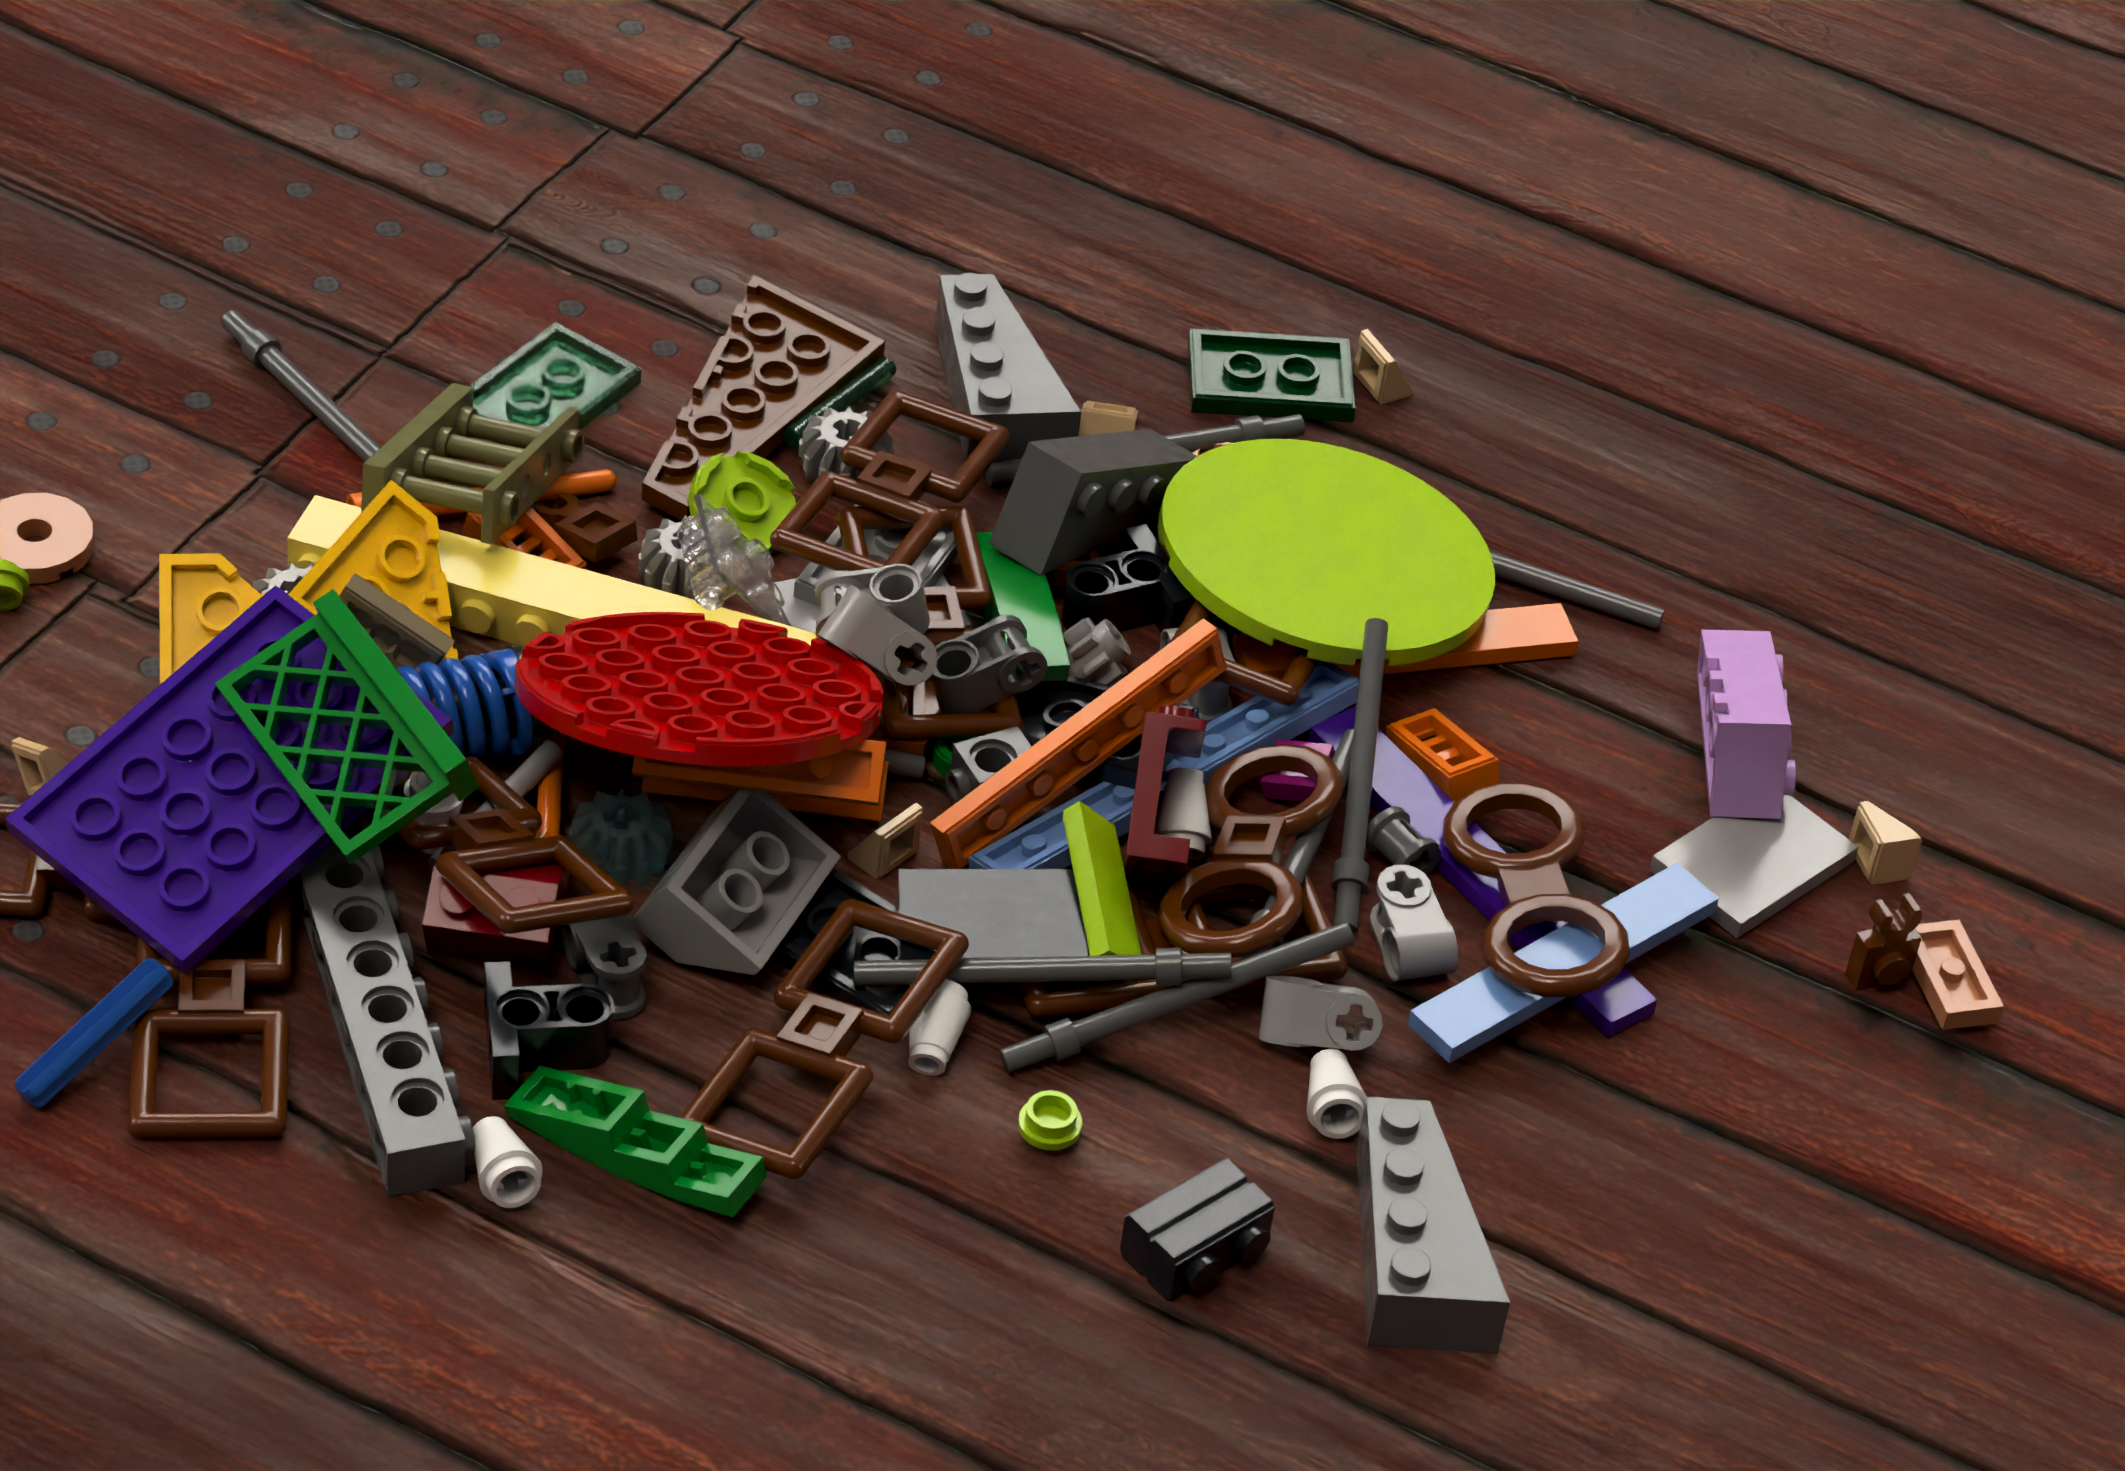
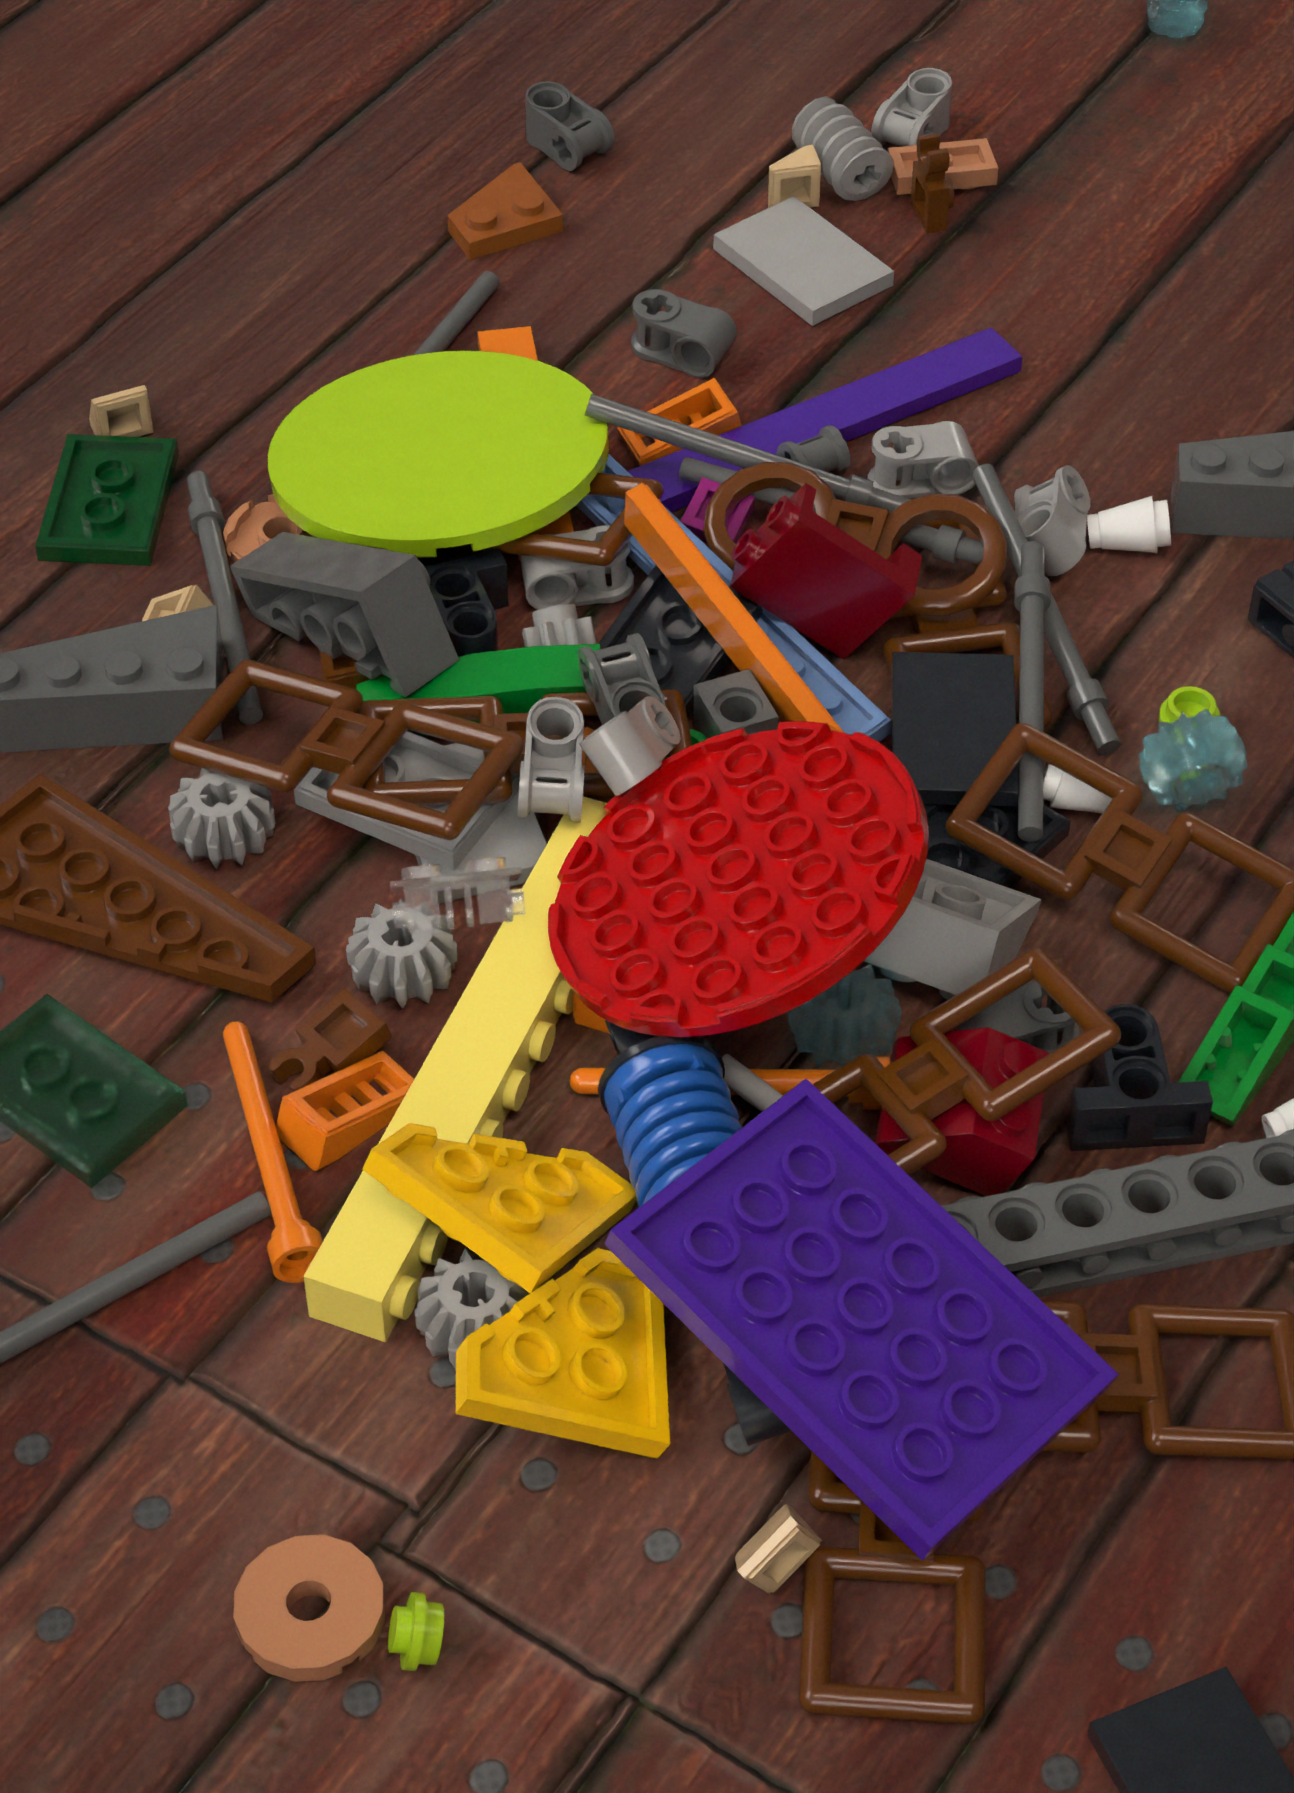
camera: 80 degrees left, 5 degrees up
(93, 1033) = (1201, 1479): blue axle -> none
(394, 627) = (584, 1178): dark tan plate -> none
(397, 710) = (797, 1120): green fence -> none
(448, 430) = (268, 1173): olive fence -> none
(749, 489) = (305, 902): lime tile -> none
(846, 396) = (154, 836): clear green bar -> none
(955, 1091) = (1193, 760): none -> clear light blue gear
(1100, 883) = (921, 639): lime tile -> none
(1489, 1006) = (966, 370): tile -> none
(1535, 890) = (890, 367): reddish brown bar -> none
(1584, 746) = (683, 335): none -> dark grey piece
(1744, 724) = (665, 221): lavender wedge -> none
(1797, 630) = (504, 215): none -> dark orange wing
(1929, 659) = (564, 125): none -> dark grey piece
(1944, 875) = (847, 151): none -> light grey piece
(2044, 953) = (915, 109): none -> light grey piece

